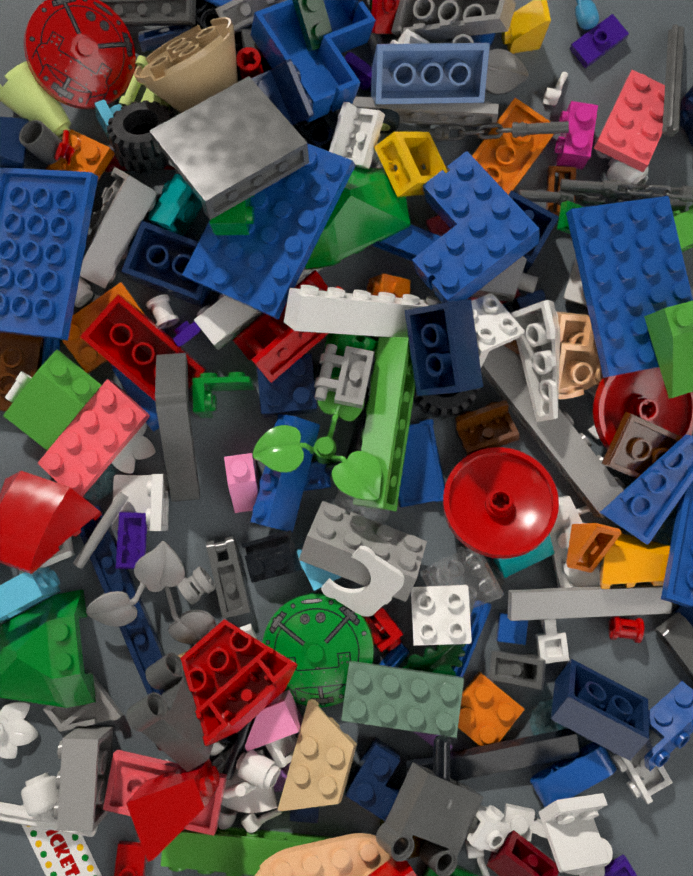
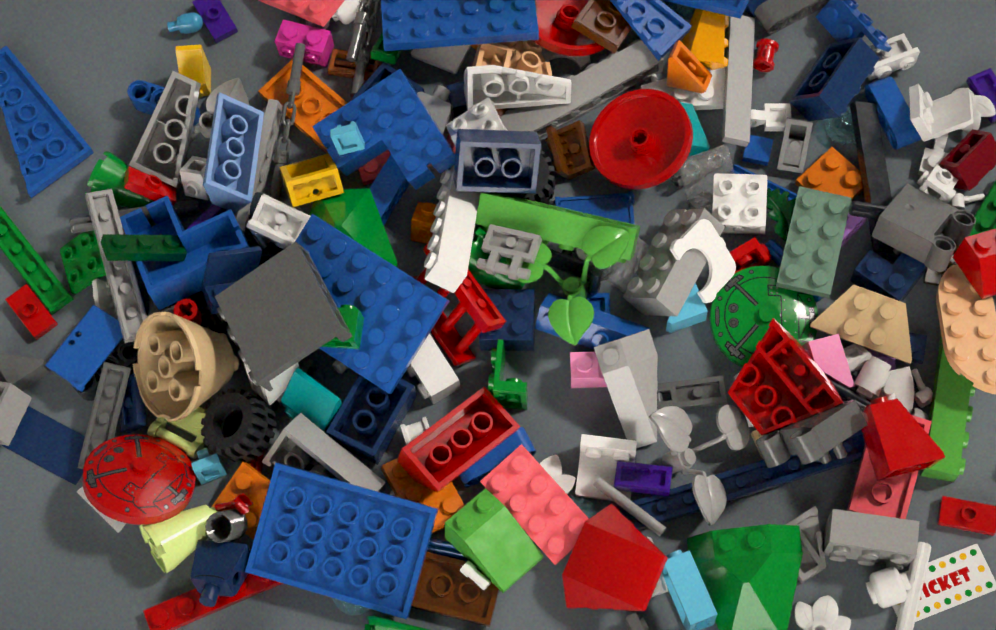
camera: 80 degrees left, 15 degrees down
(176, 426) = (536, 402): dark grey beam -> none
(185, 333) = (443, 400): dark purple plate -> none
(196, 585) = (699, 426): light grey wheel -> none
(226, 518) = (631, 379): none -> light grey wedge
(271, 556) = (673, 349): black plate -> none
(449, 185) = (347, 138): none -> medium azure tile
(552, 95) = (260, 61): white hand -> none

